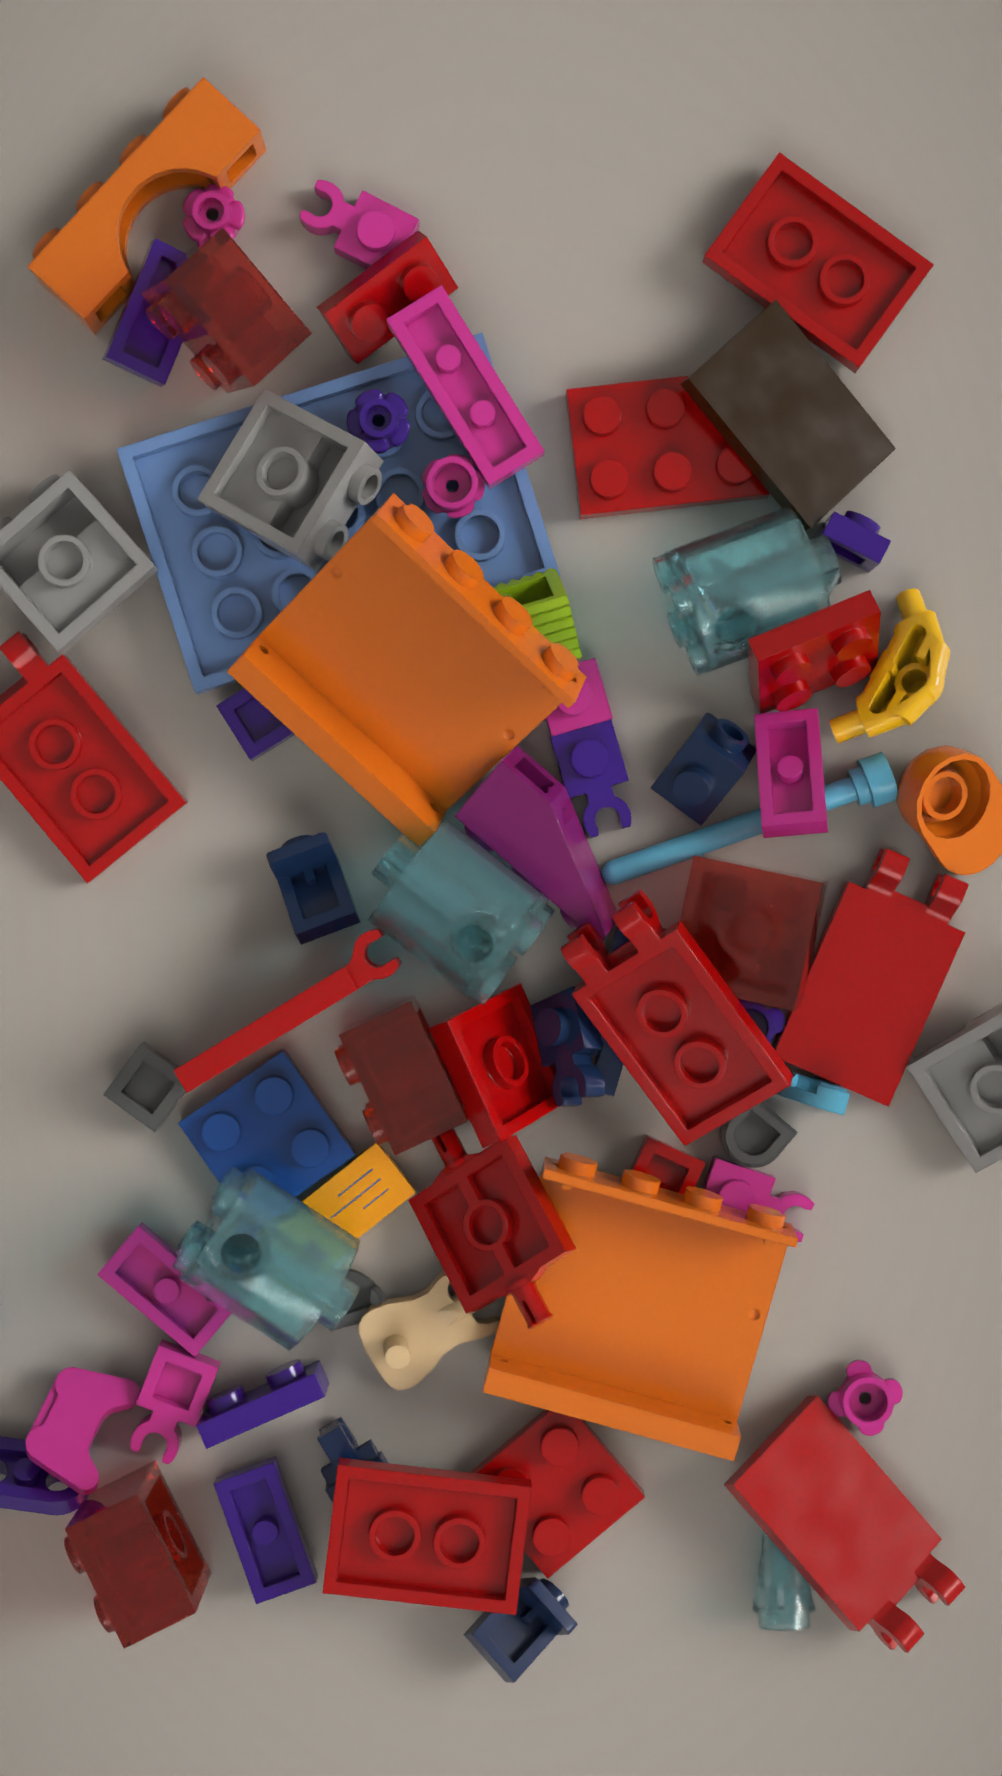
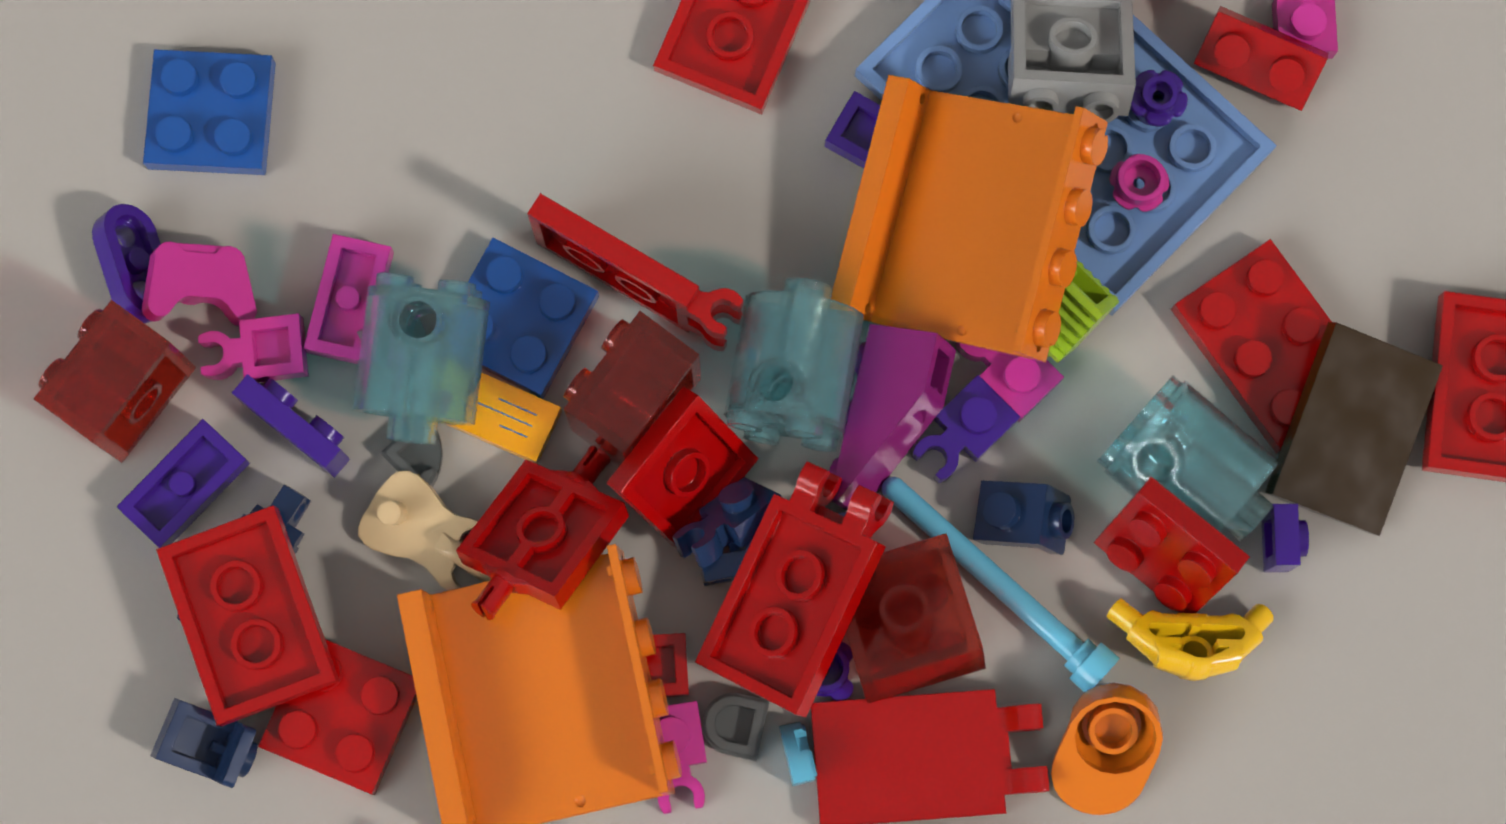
camera: 65 degrees right, 10 degrees down
(147, 1087) = (508, 196): dark grey plate -> none
(313, 886) = (748, 243): dark blue bracket -> none
(465, 387) = (1224, 151): dark pink plate -> none
(790, 773) = (1059, 587): dark pink plate -> none

